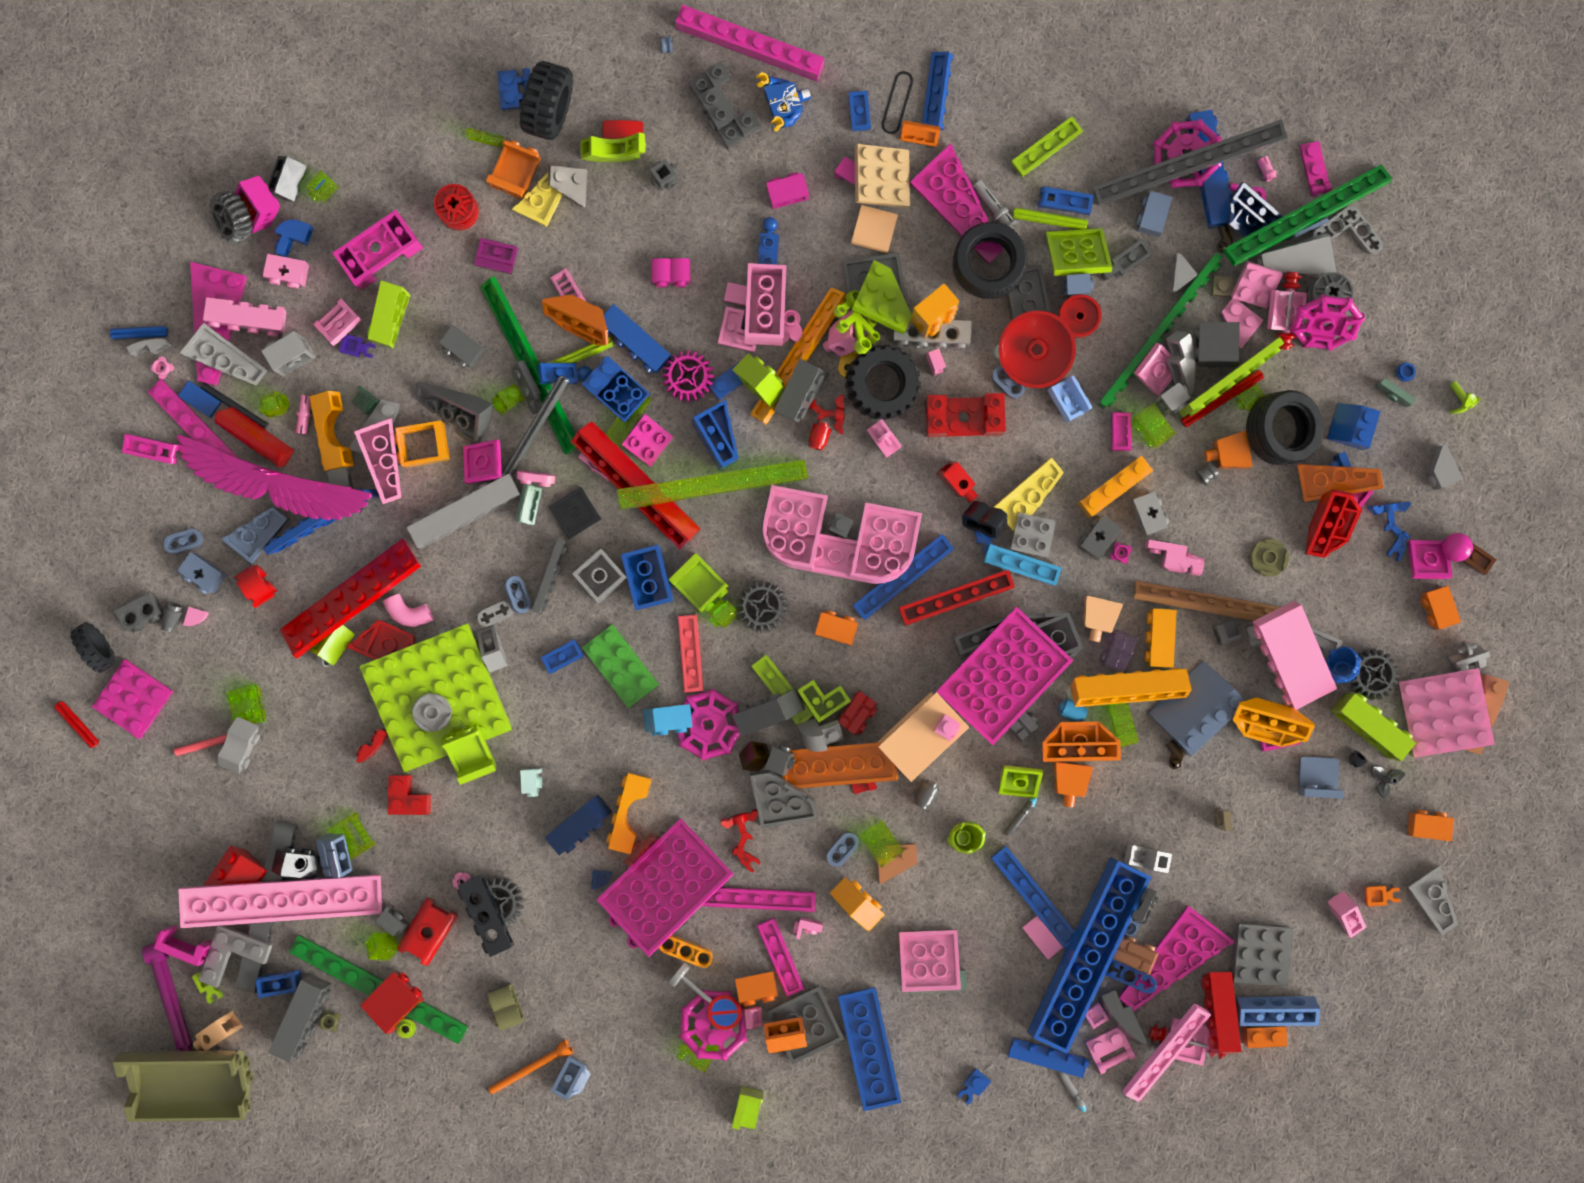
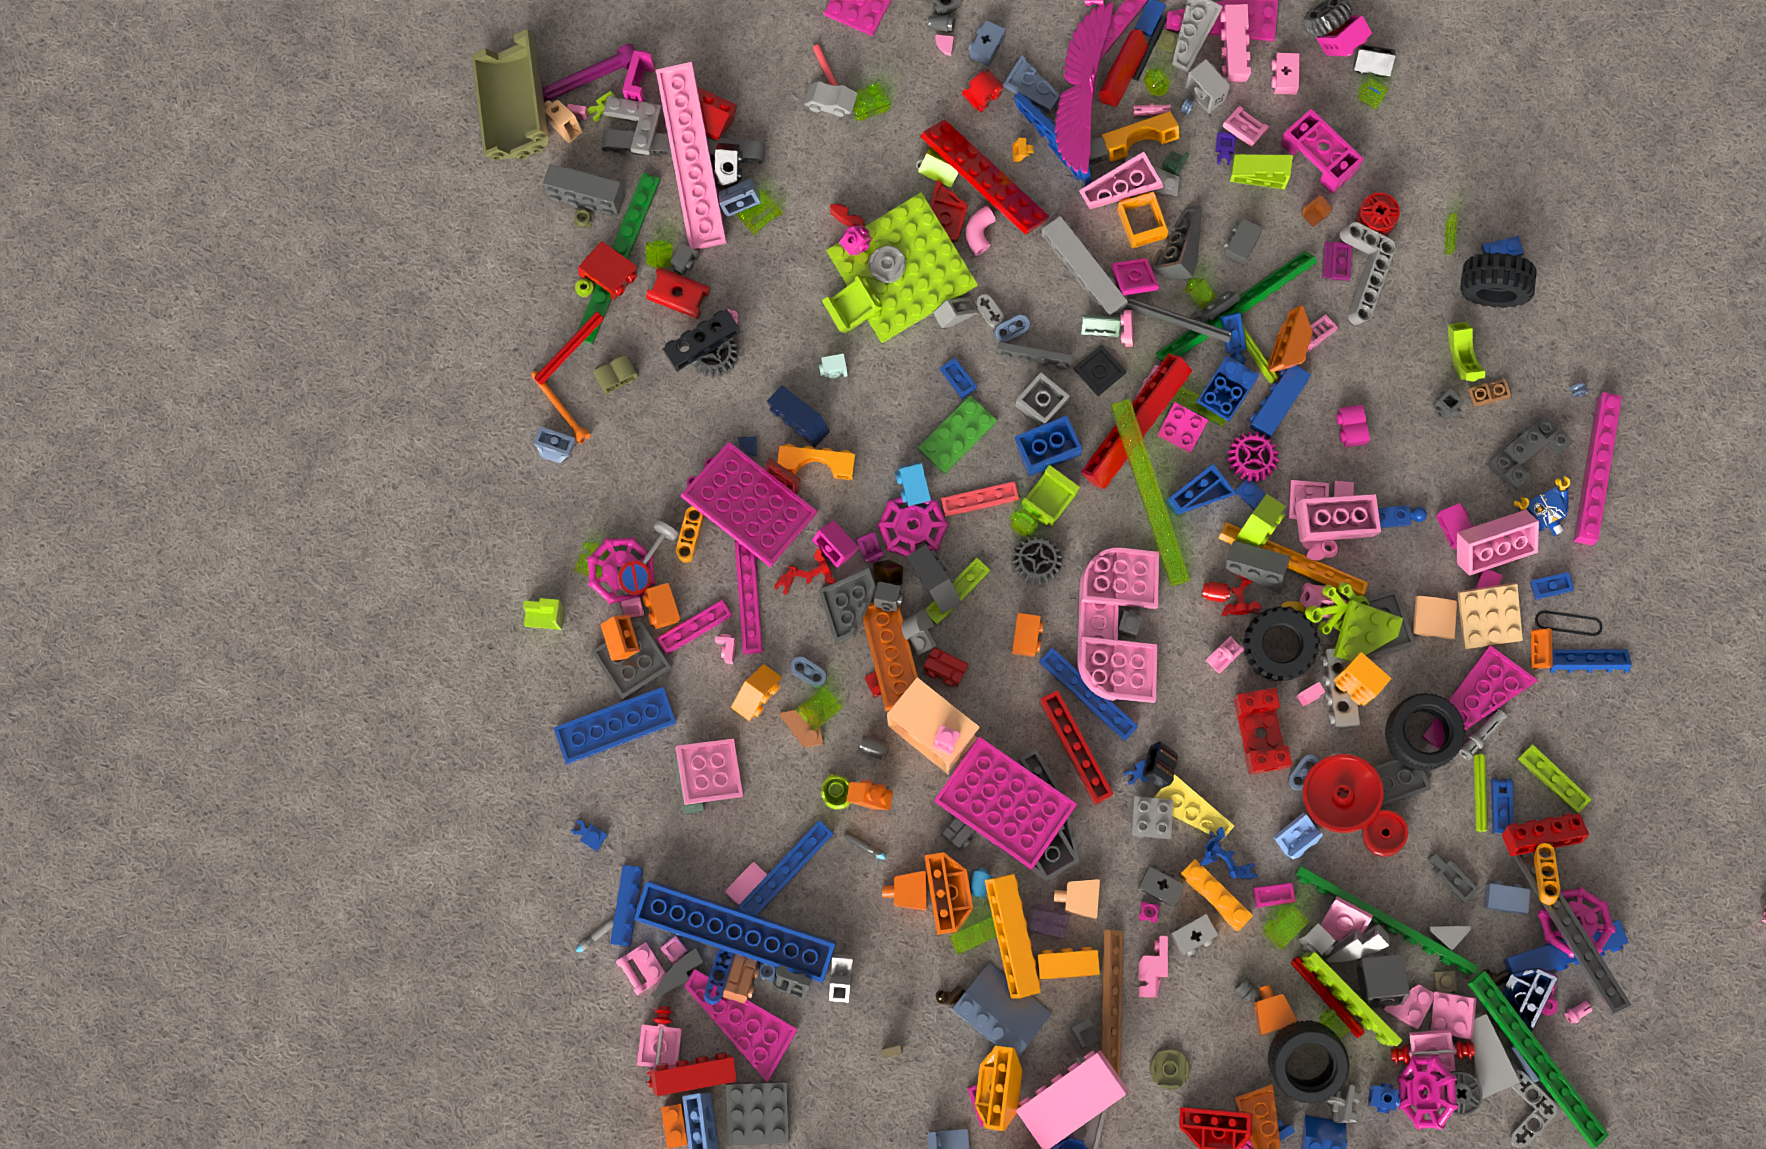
camera: 85 degrees right, 10 degrees down
(184, 541) = (1014, 24): sand blue plate -> none
(210, 1014) = (579, 111): none -> bright pink tile
(229, 385) = (1168, 41): none -> olive plate
(278, 983) = (613, 165): blue brick -> none
(292, 231) = (1323, 71): blue brick -> none
(305, 377) = (1187, 106): none -> sand blue bush
(326, 555) = (1021, 150): none -> light orange tile
(401, 799) = (801, 250): red brick -> none
(402, 741) = (856, 240): none -> dark pink brick
(440, 266) = (1316, 211): none -> dark orange panel
(471, 1052) = (568, 348): none -> red axle
(511, 224) = (1371, 270): none -> light grey beam
(514, 169) = (1425, 265): orange panel -> none
(539, 203) = (1404, 298): light yellow wing -> none
(569, 182) = (1423, 317): wing -> none
(620, 128) = (1485, 357): red slope -> none
(656, 132) = (1489, 393): none -> medium nougat slope
(717, 805) = (835, 543): none -> dark pink brick
(725, 770) = (869, 547): none -> magenta bracket
(812, 154) = (1497, 542): none -> bright pink brick
(820, 704) = (949, 629): lime brick -> none
(952, 474) = (1200, 727): red torso -> none
(977, 806) = (869, 795): none -> orange brick
(1020, 781) = (900, 838): lime slope -> none
(1022, 564) = (1120, 811): dark azure plate -> none
(1073, 481) = (1214, 847): none -> blue piece
(1076, 284) = (1417, 825): sand blue brick -> none
(1078, 252) = (1451, 823): lime plate -> none
(1101, 166) = (1557, 832): none -> red brick
(1150, 176) = (1544, 882): none -> light orange beam
(1166, 1052) = (646, 1023): bright pink plate -> none
(1315, 168) = (1590, 1064): dark pink plate -> none
(1323, 363) = (1377, 1094): none -> blue brick
(1326, 402) = (1343, 1103): none -> light grey hips

